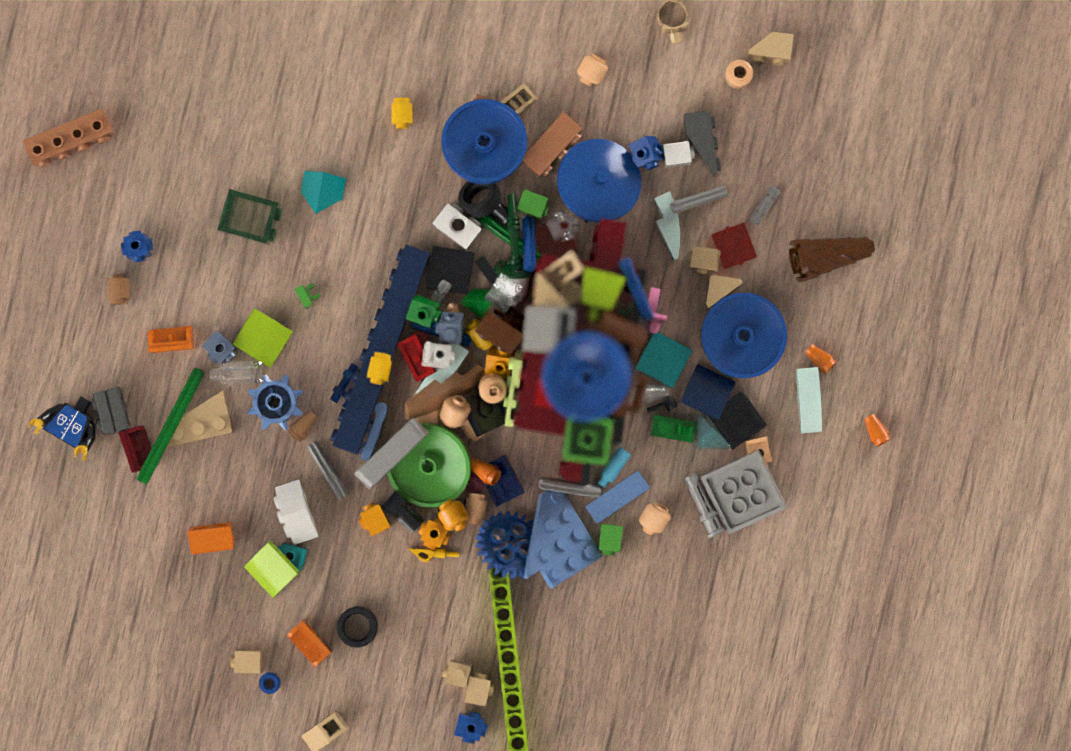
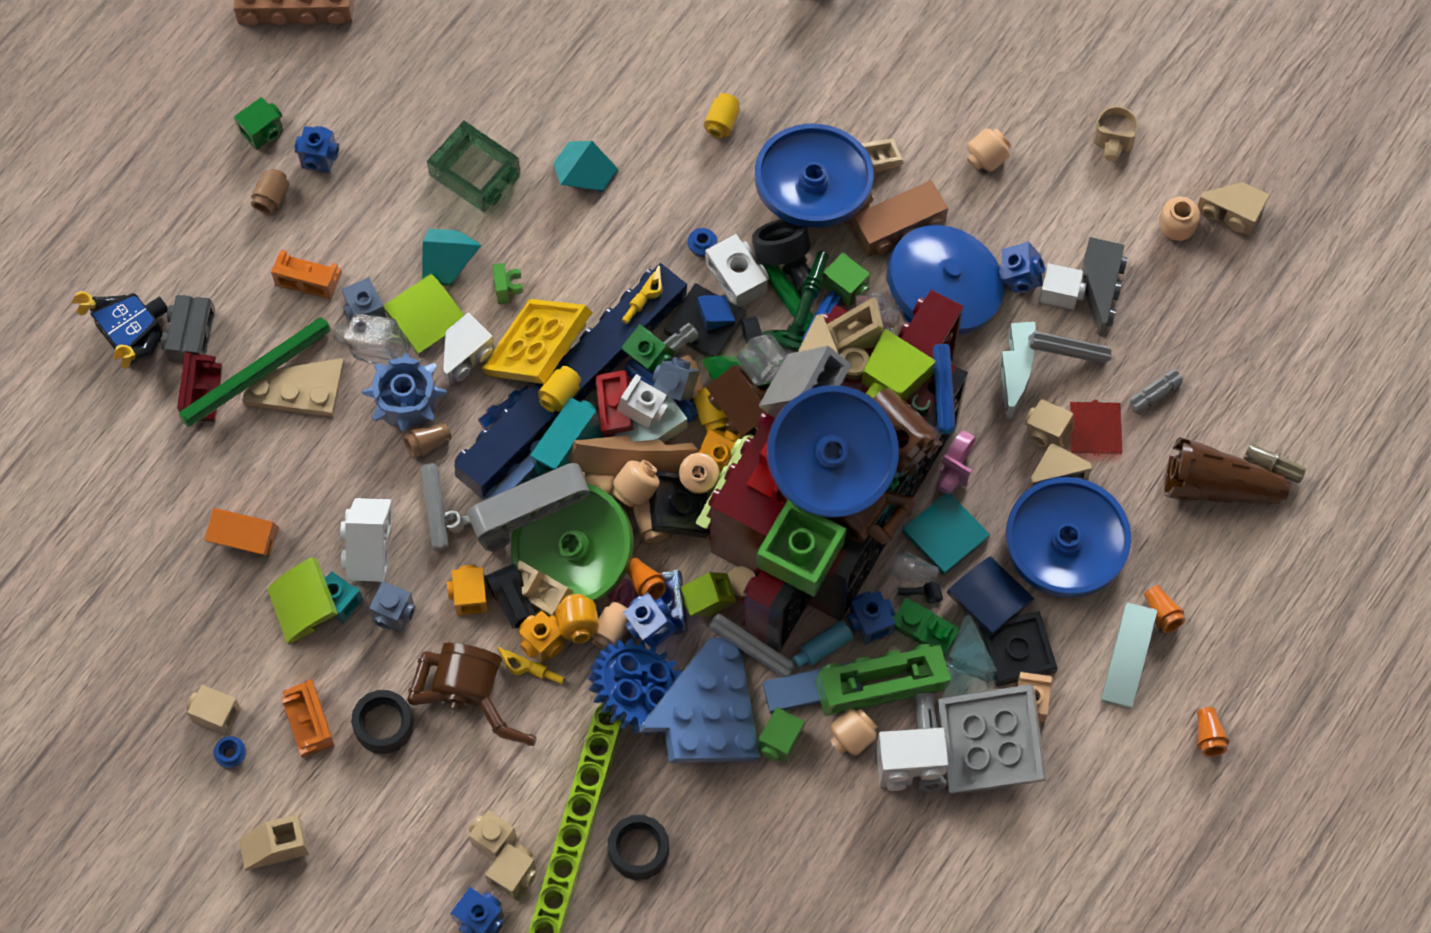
camera: 25 degrees right, 20 degrees down
(89, 240) = (259, 122): none -> green brick
(258, 288) = (446, 254): none -> teal slope
(299, 352) = (465, 347): none -> white slope
(331, 552) = (392, 607): none -> sand blue brick
(347, 333) = (537, 340): none -> yellow plate
(350, 471) = (461, 521): none -> white hand
(396, 581) = (462, 680): none -> reddish brown piece
(399, 390) = (573, 423): none -> teal brick
(404, 279) = (646, 293): none -> yellow hand
(423, 502) = (542, 589): none -> tan slope
(425, 219) = (698, 248): none -> blue plate
(455, 263) = (715, 311): none -> blue slope
(499, 499) = (649, 620): none -> brick
(529, 464) = (708, 594): none -> lime brick
(534, 644) = (638, 822): none -> black tyre
(545, 444) = (739, 578): none -> tan tile
(646, 439) = (871, 616): none -> blue brick
(688, 457) = (838, 683): none -> bright green brick
(698, 525) = (910, 754): none -> white brick
(858, 228) = (1275, 463): none -> dark tan axle

